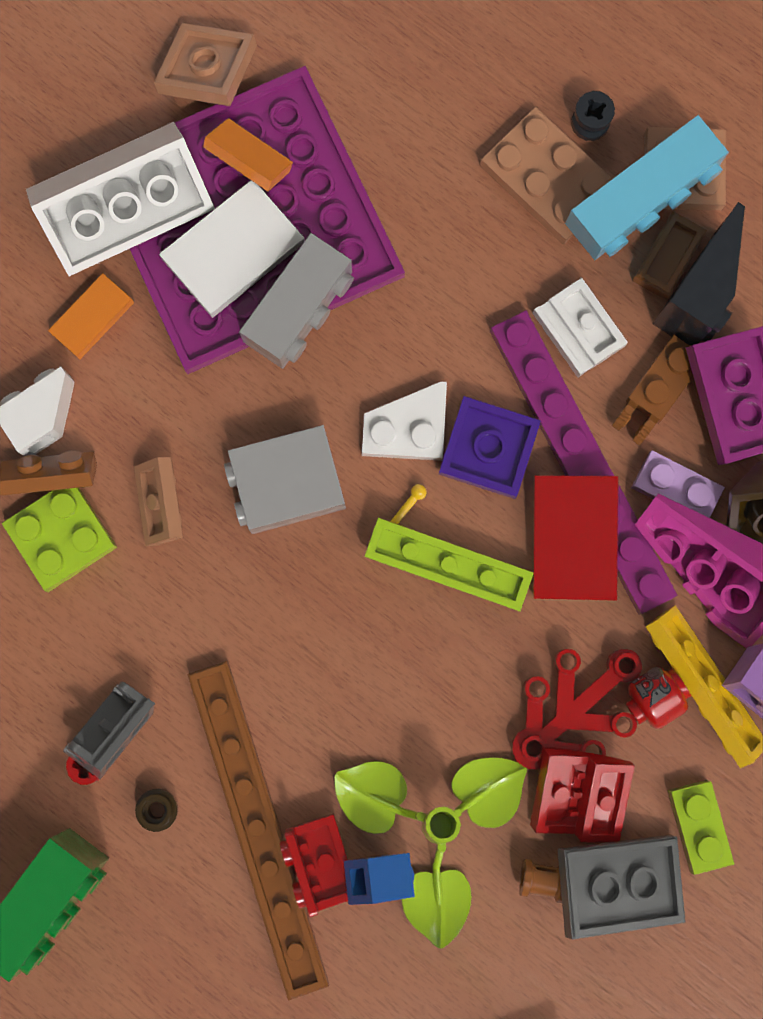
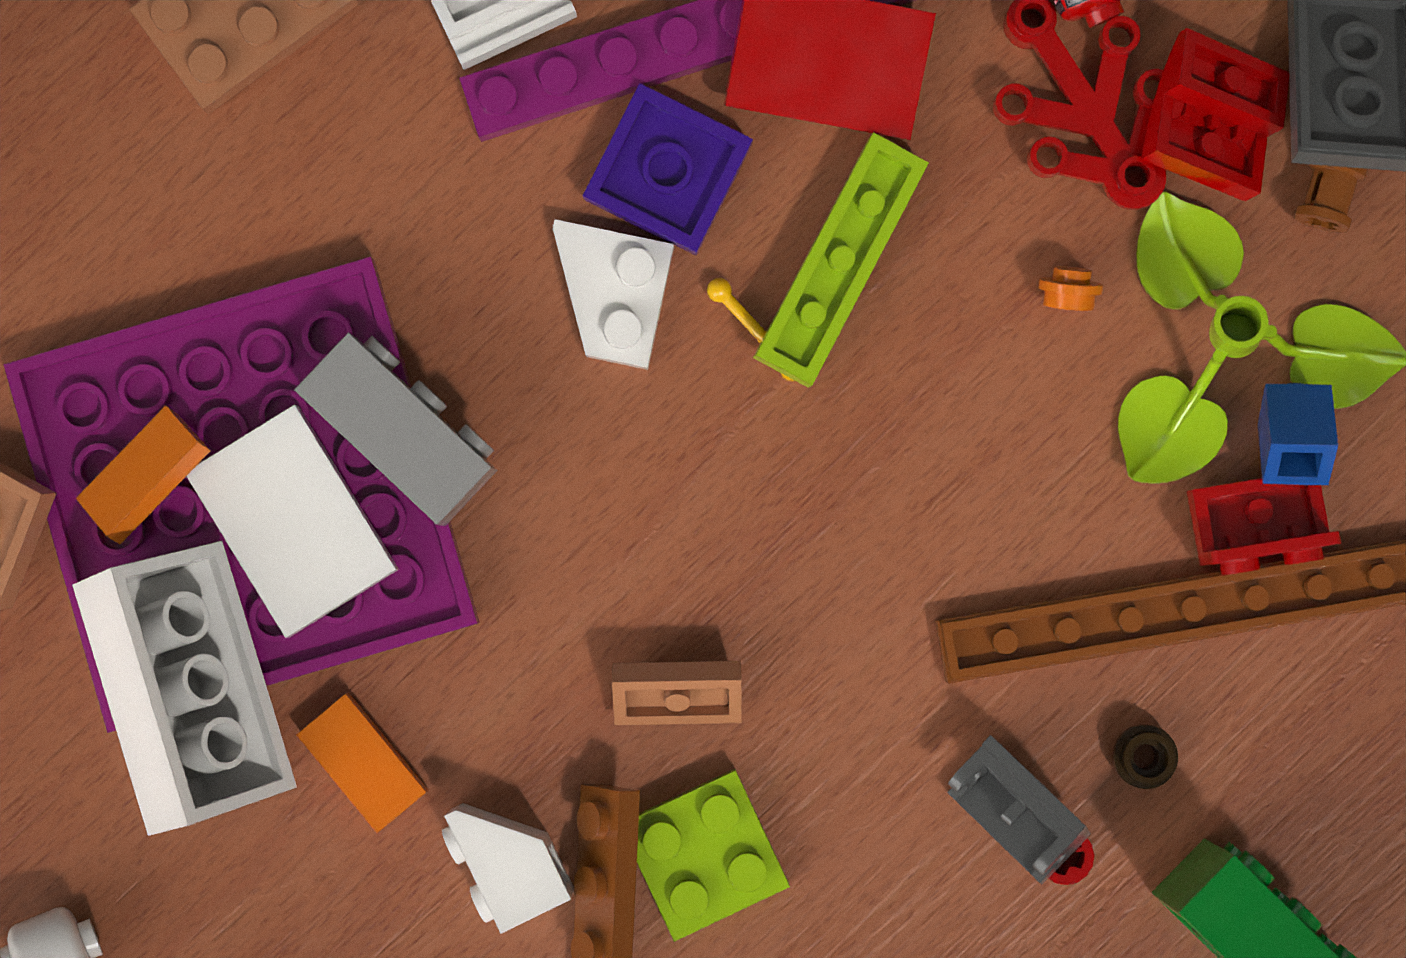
camera: 75 degrees left, 5 degrees up
(284, 480) = (673, 490): light grey brick -> none
(453, 716) = (1070, 289): none -> orange plate

